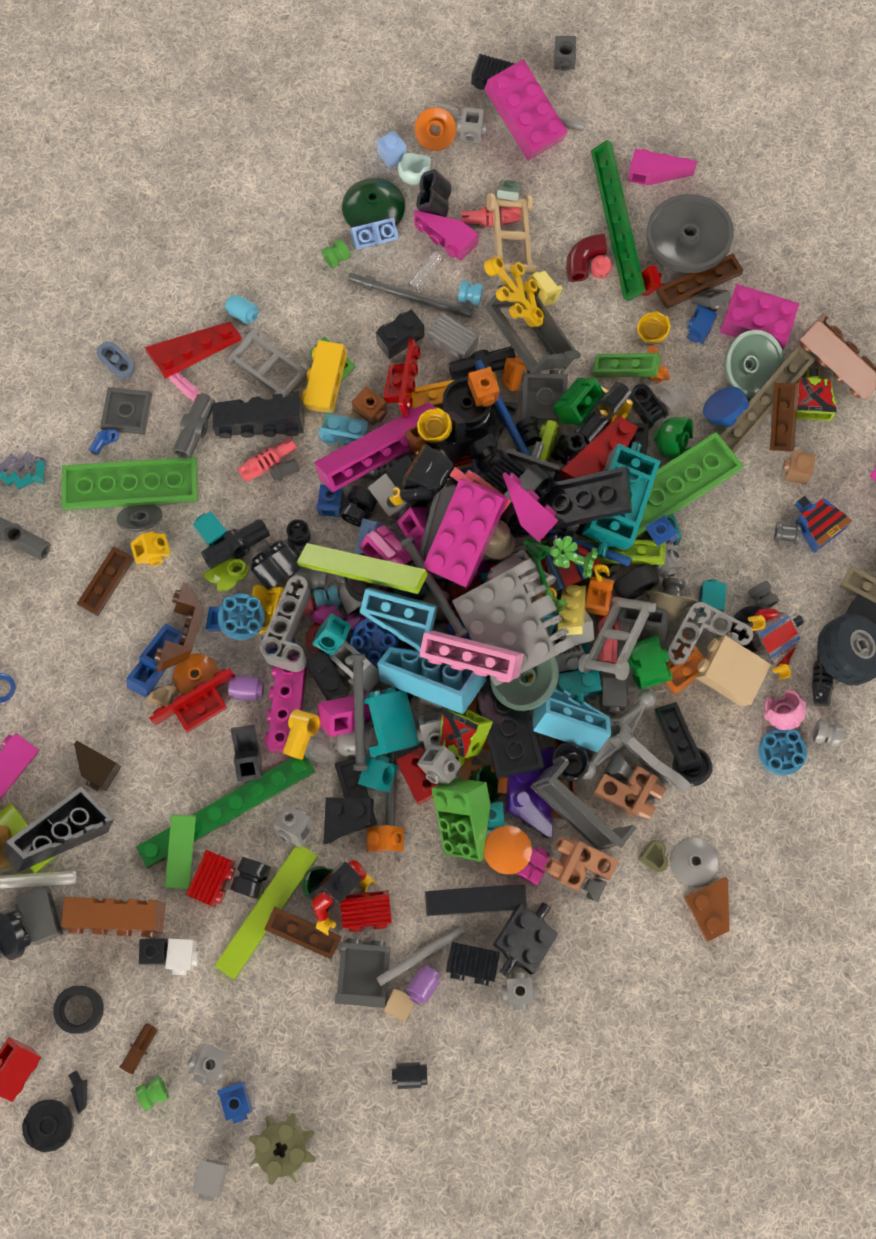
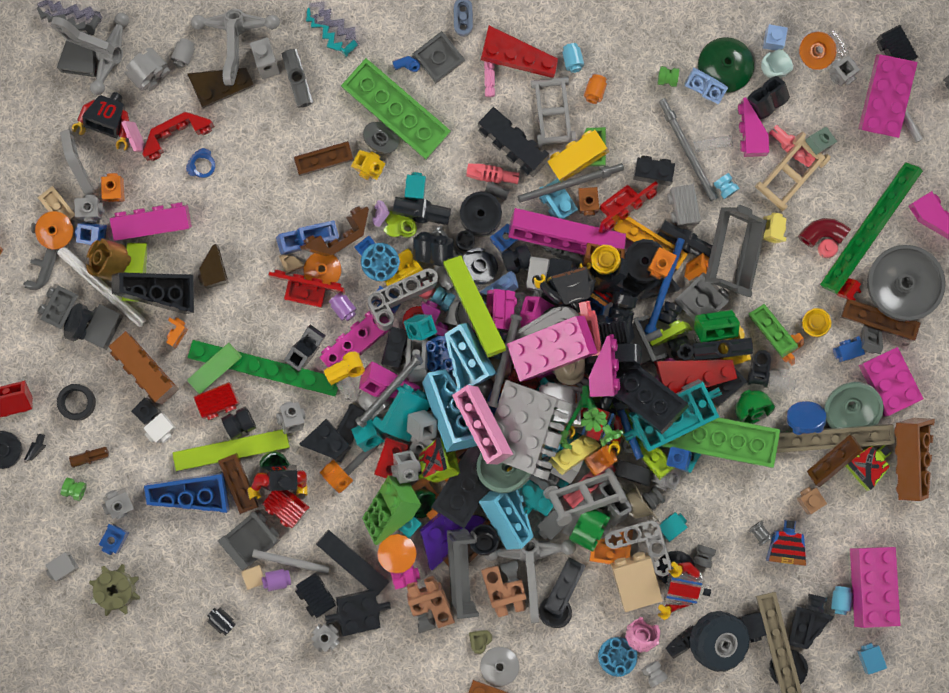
camera: 45 degrees right, 10 degrees up
(116, 858) = (176, 335): none -> orange bracket
(193, 426) = (467, 110): dark grey piece -> none
(201, 579) = (380, 214): none -> lavender tile
(270, 981) = (190, 493): none -> blue wedge
(285, 315) = (595, 89): none -> orange brick
(289, 497) = (483, 225): none -> black wheel
(332, 537) = (481, 265): none -> tile
(358, 374) = (603, 172): none -> dark grey bar
(417, 714) = (421, 425): none -> light grey brick
(531, 313) = (748, 240): yellow plant -> none

